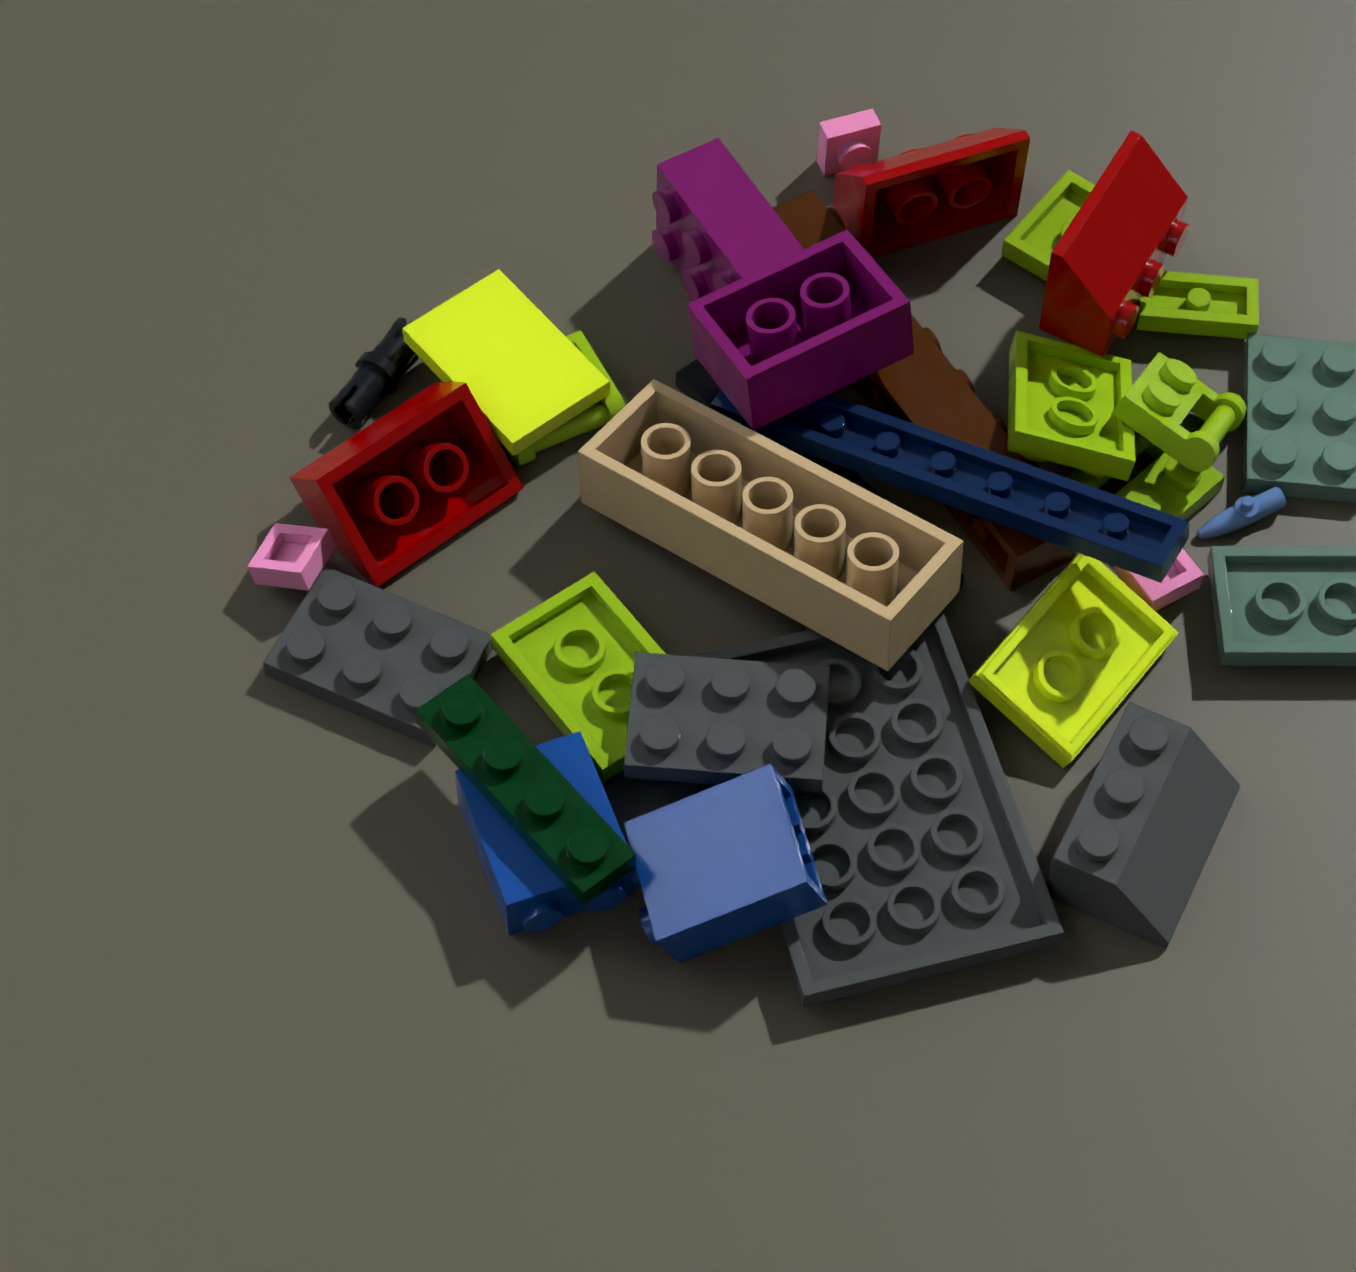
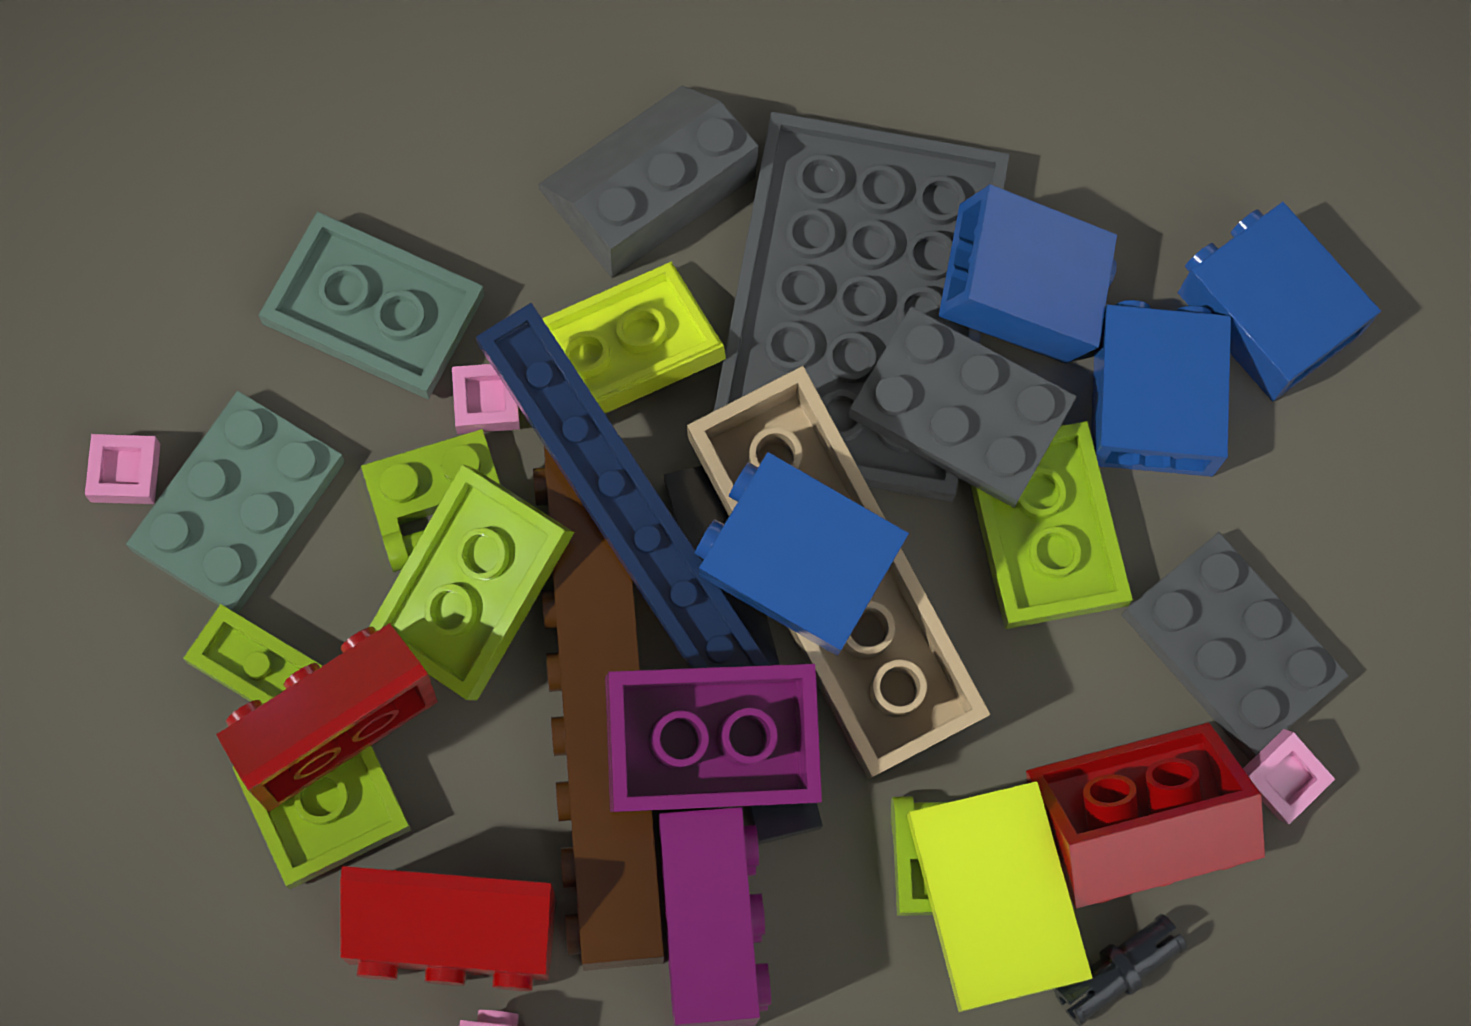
camera: 160 degrees left, 15 degrees up
(463, 971) = (1284, 298): none -> blue brick
(526, 789) = (1178, 405): dark green plate -> none
(805, 468) = (799, 552): none -> blue brick
(1162, 401) = (380, 546): lime plate -> none
(1243, 513) = (364, 430): medium blue helmet -> none

